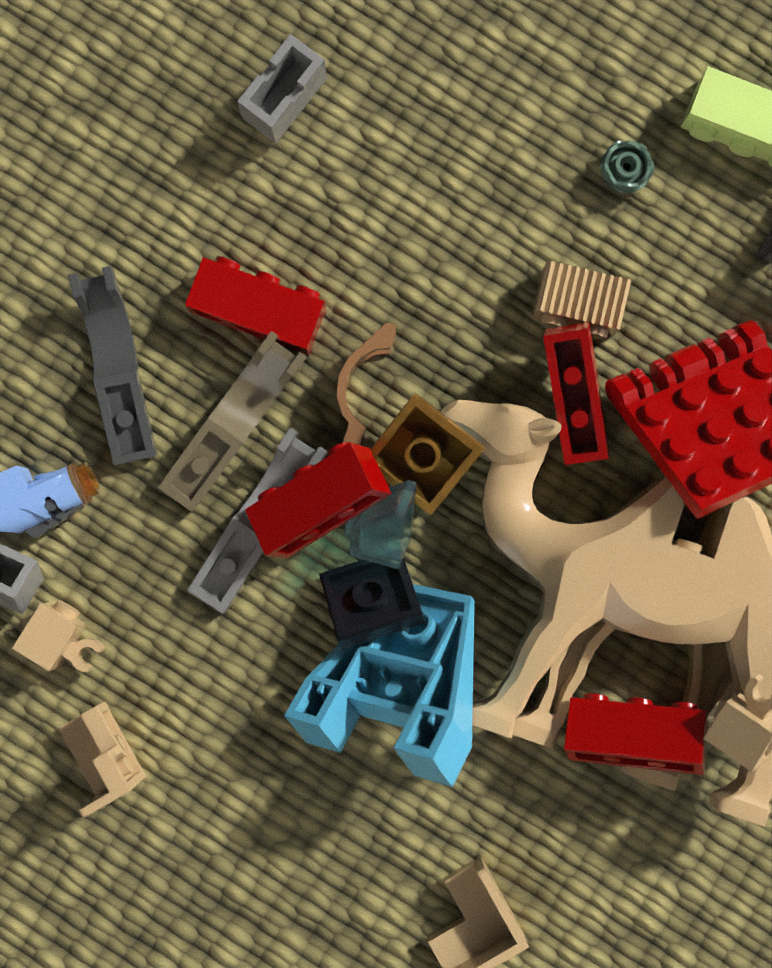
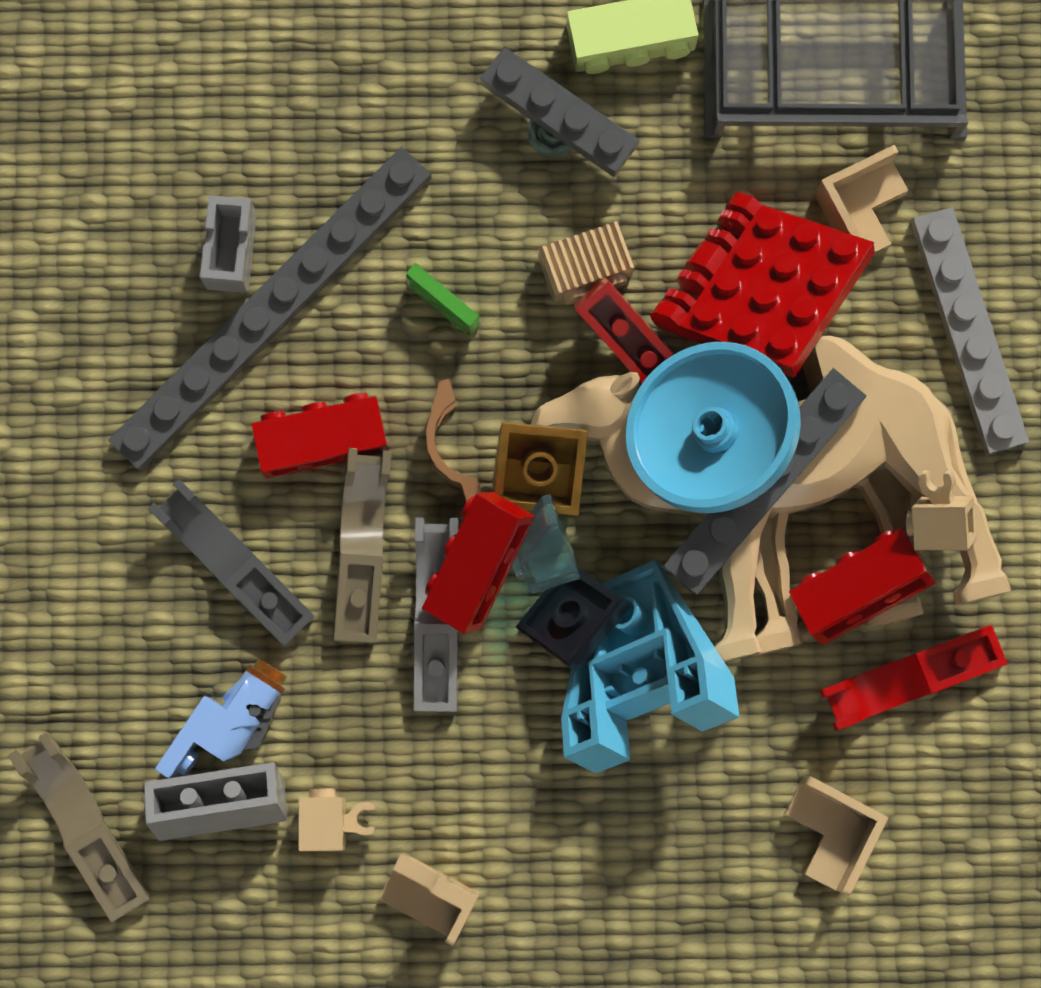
camera: 35 degrees left, 5 degrees down
(287, 168) = (269, 309): none -> dark grey plate
(436, 253) = (442, 300): none -> bright green tile
(589, 481) = (713, 427): none -> medium azure dish
(611, 592) = (724, 531): none -> dark grey plate
(631, 836) = (914, 676): none -> red piece
(643, 151) = (559, 112): none -> dark grey plate

